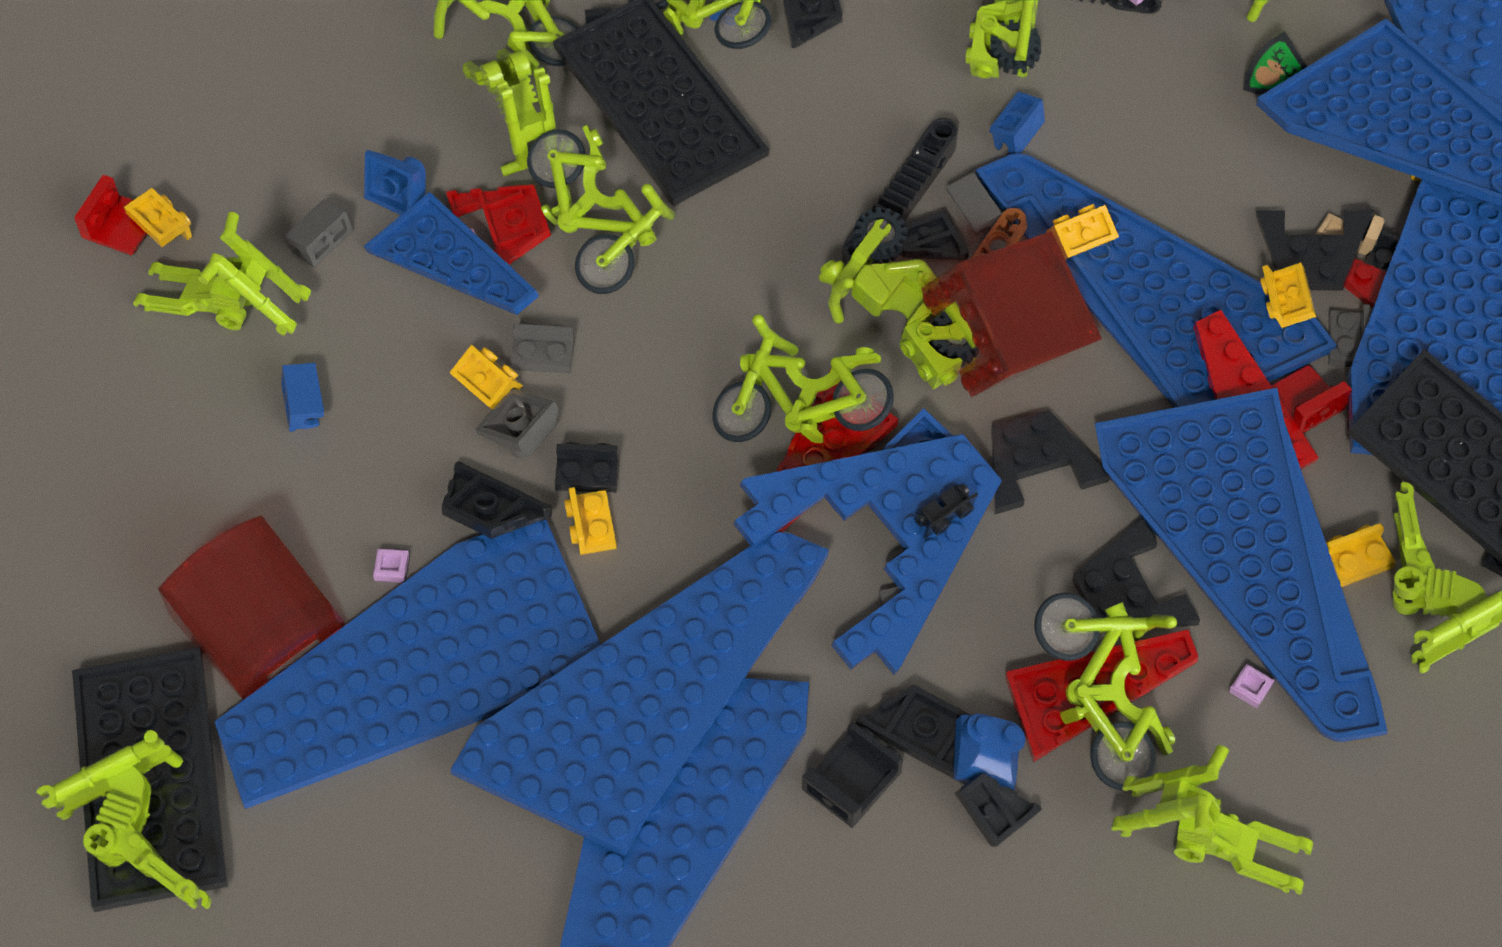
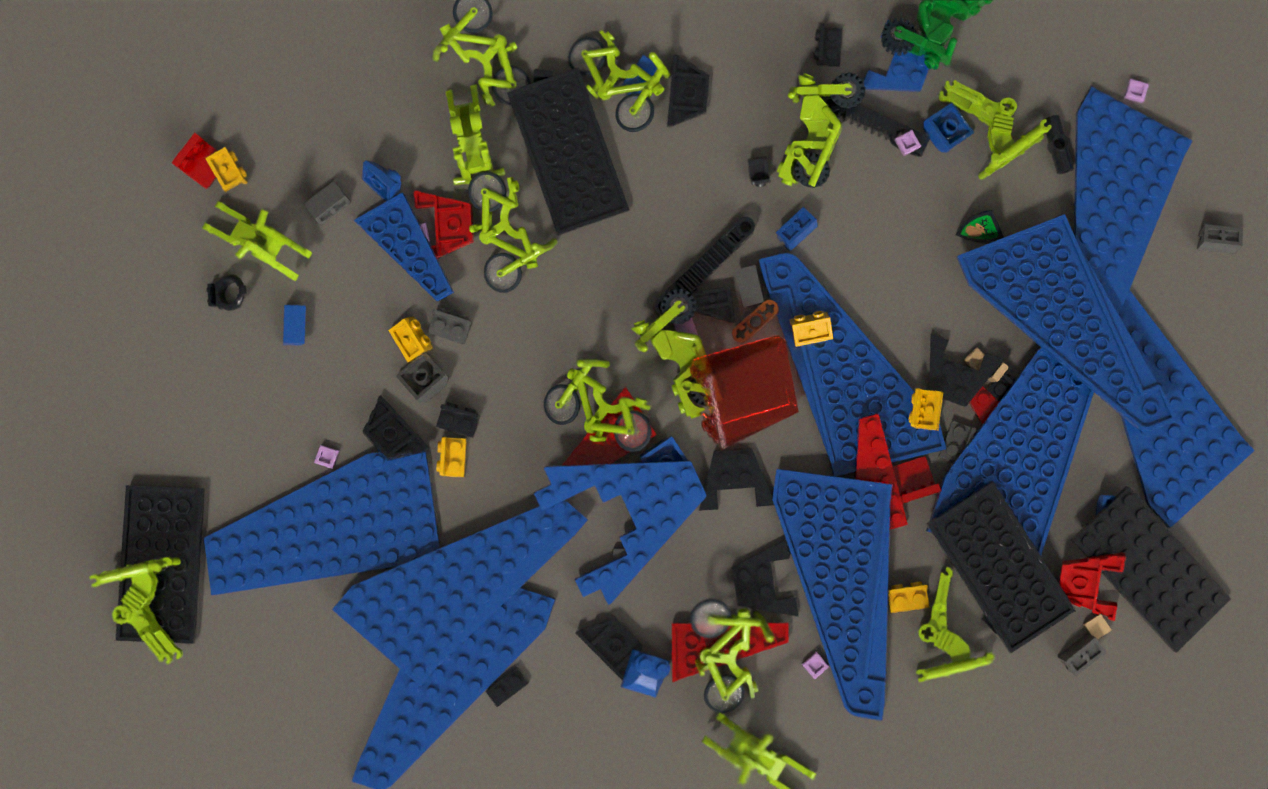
camera: 15 degrees right, 25 degrees up
(172, 380) = (216, 293): none -> black piece
(247, 604) = (237, 470): clear red windscreen -> none
(767, 832) = (507, 687): none -> black plate
(853, 775) = (564, 665): black panel -> none
(938, 519) = (671, 512): black hinge -> none
(939, 68) = (758, 171): none -> black bracket
(995, 808) = (640, 709): black wing -> none

